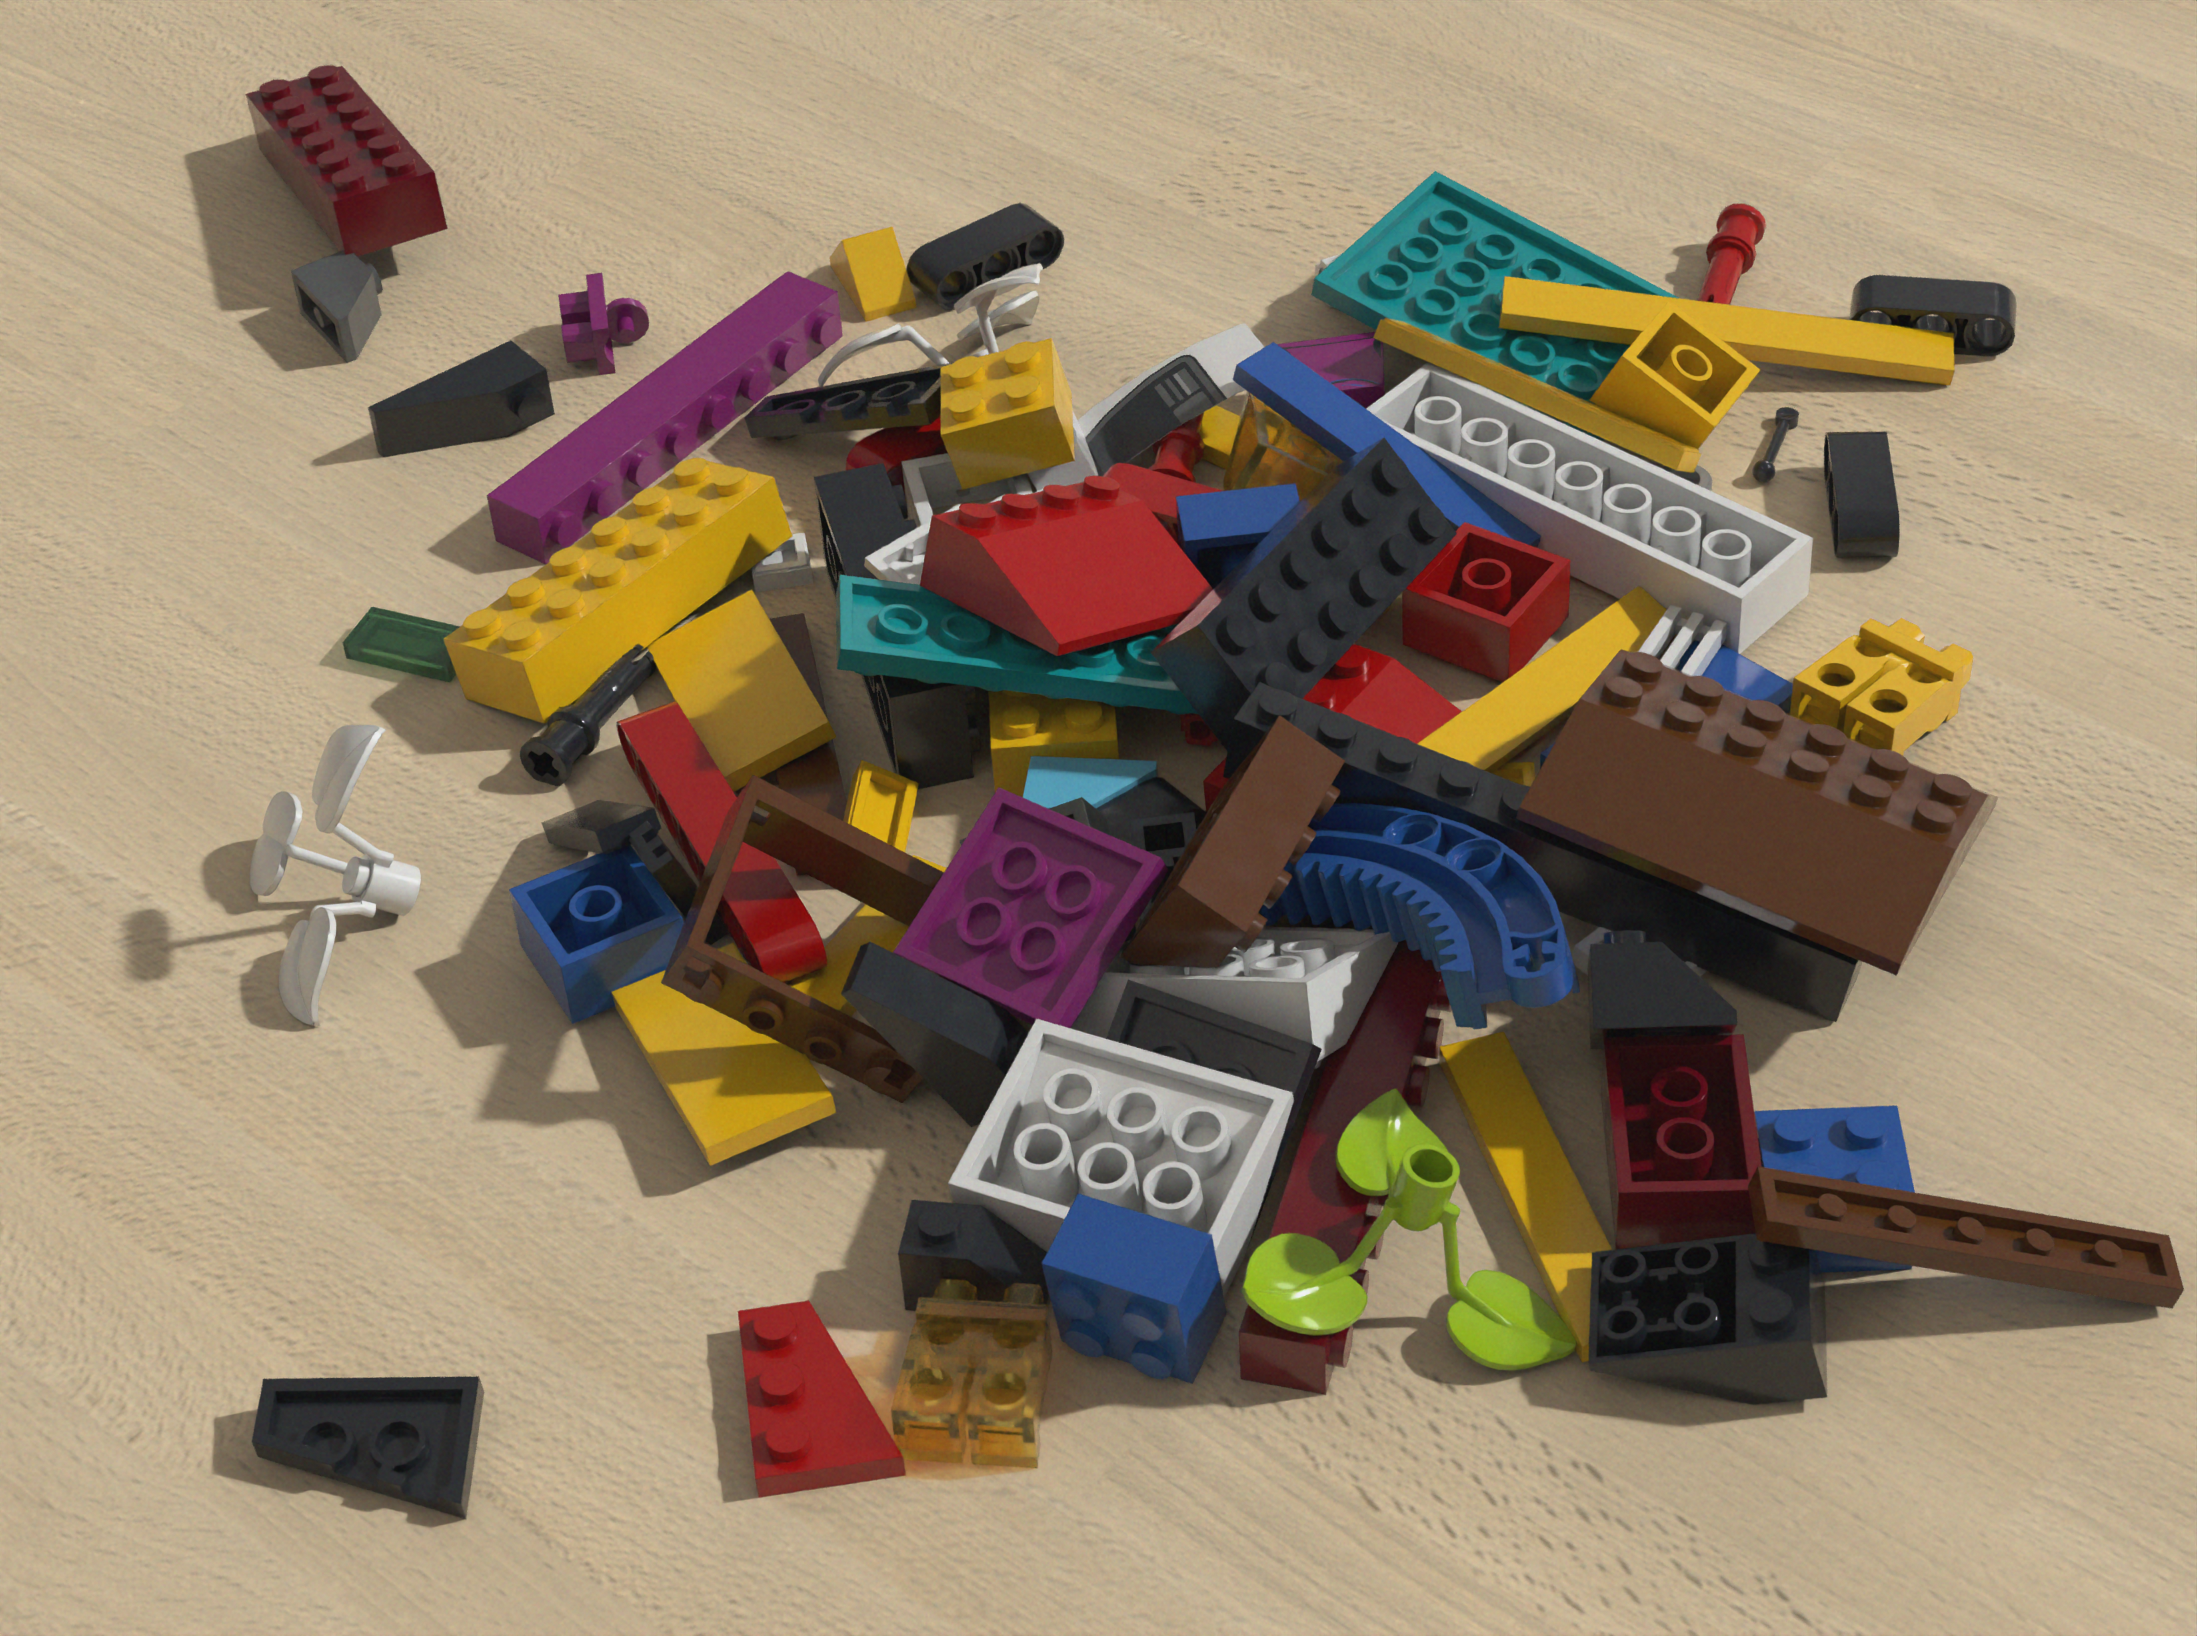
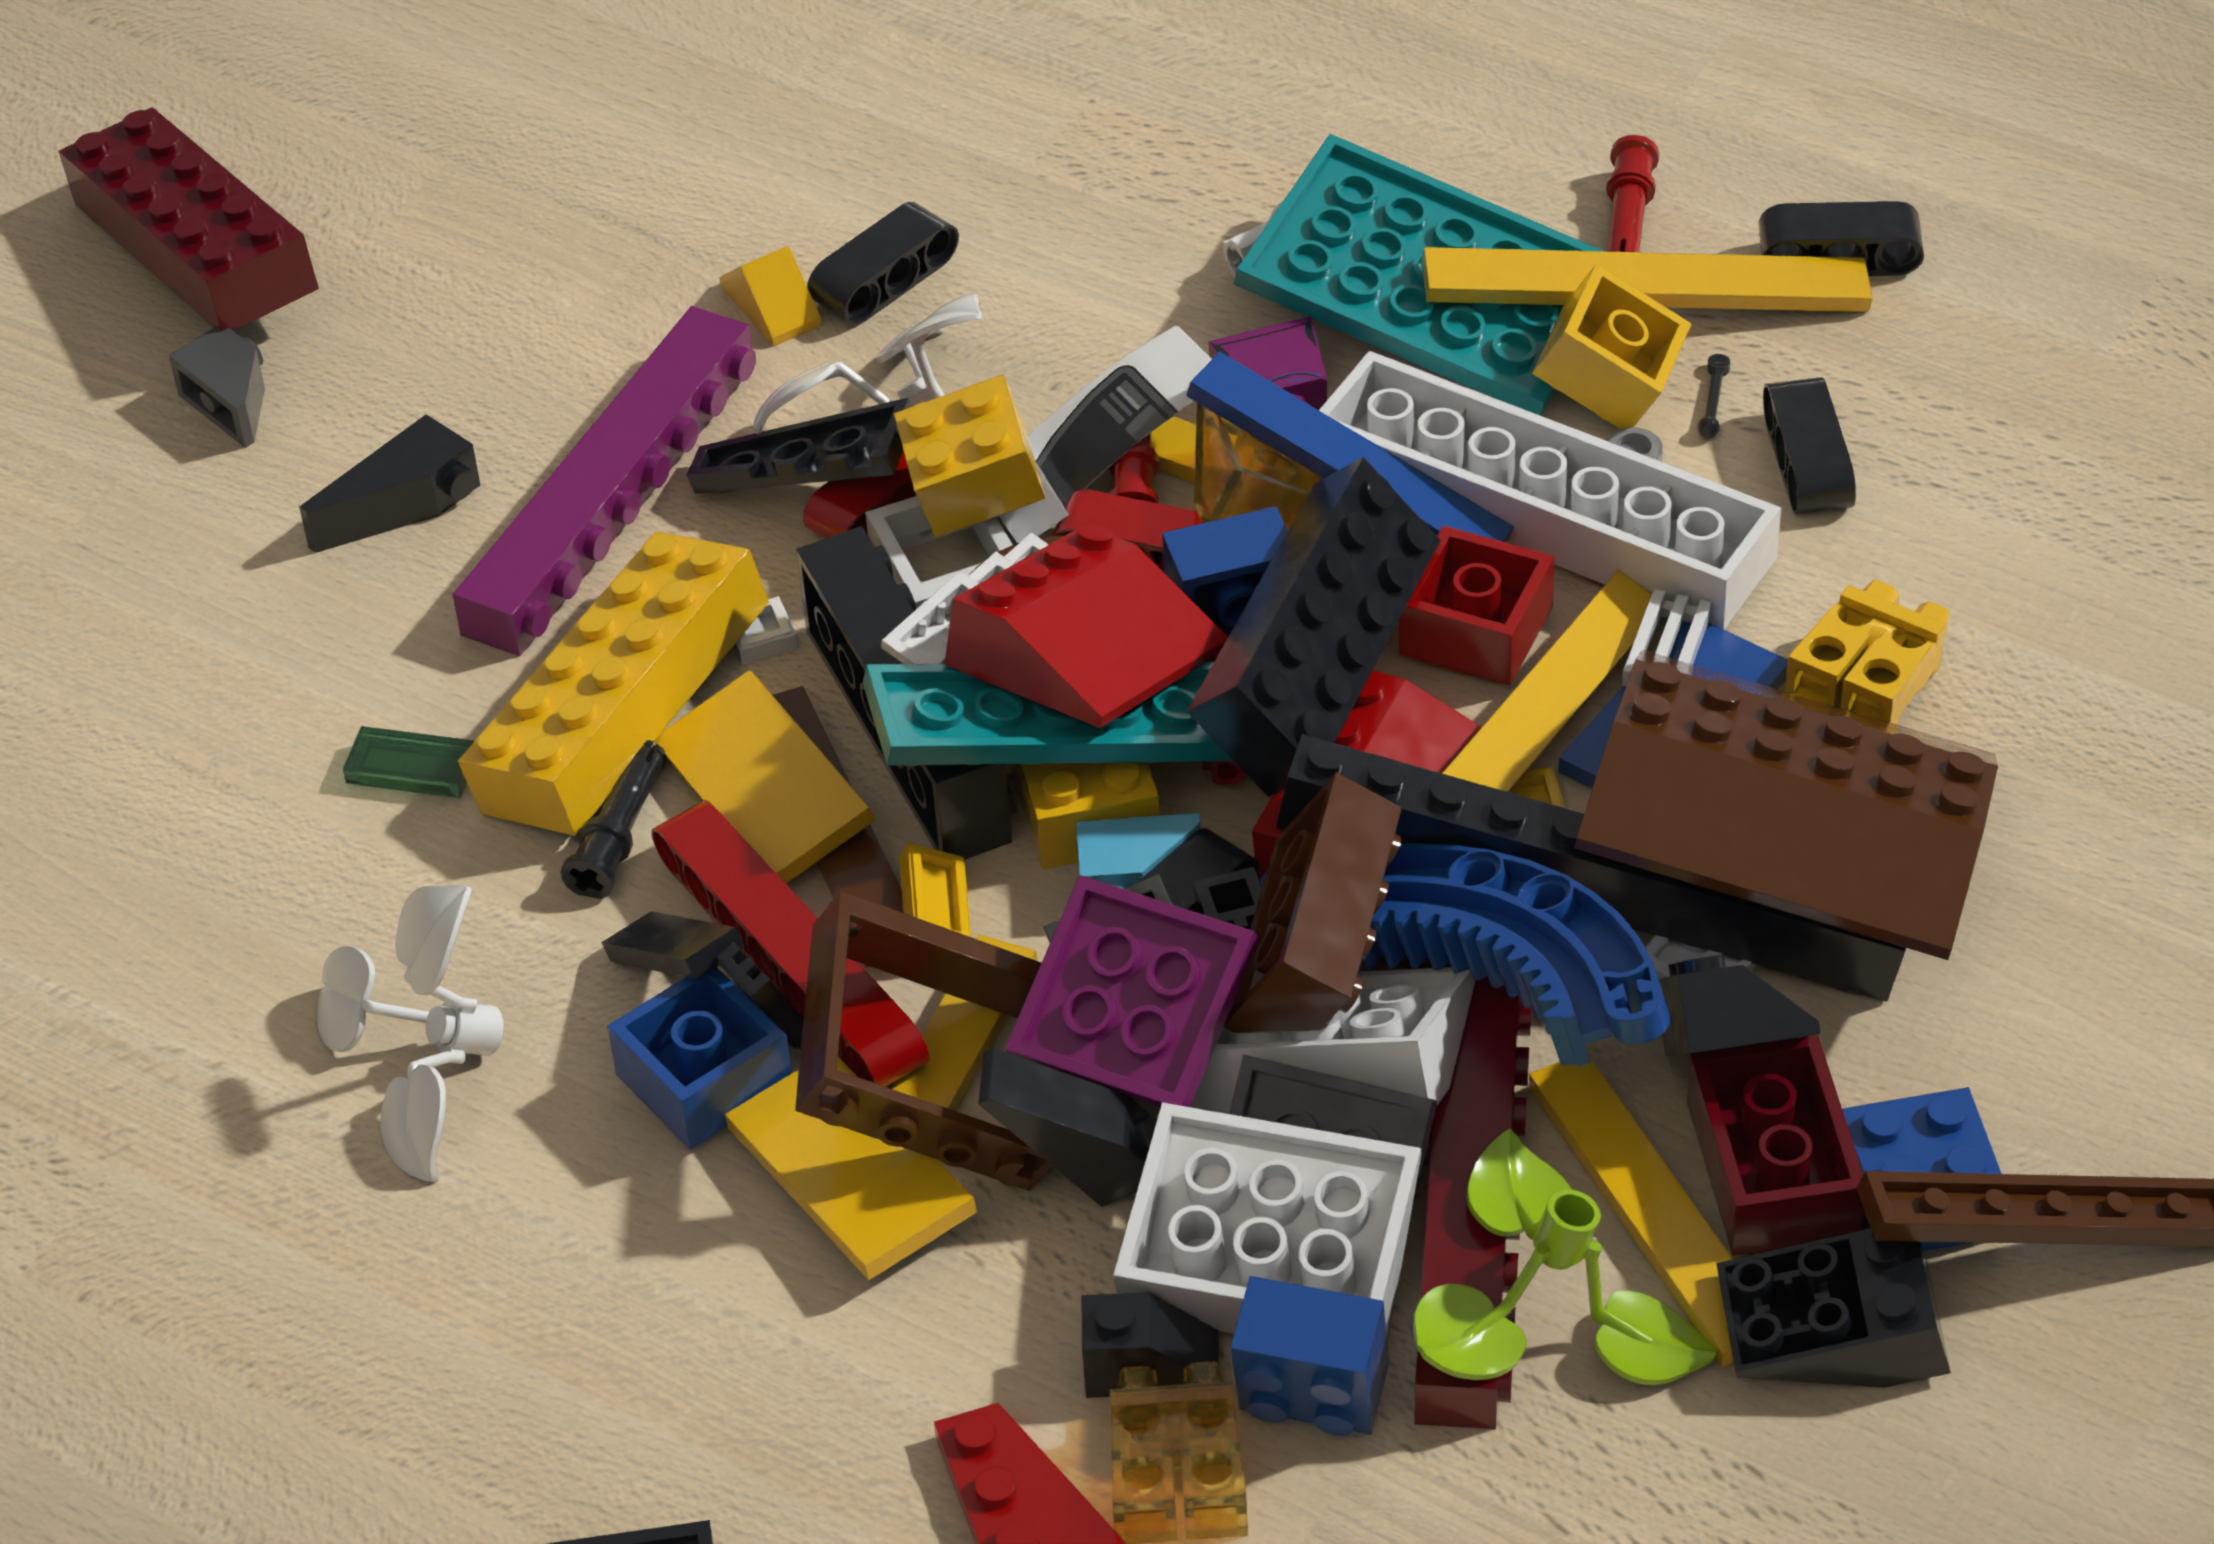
camera: 10 degrees left, 5 degrees up
(592, 325) = (501, 384): magenta hips -> none
(1538, 395) = (1481, 374): yellow tile -> none

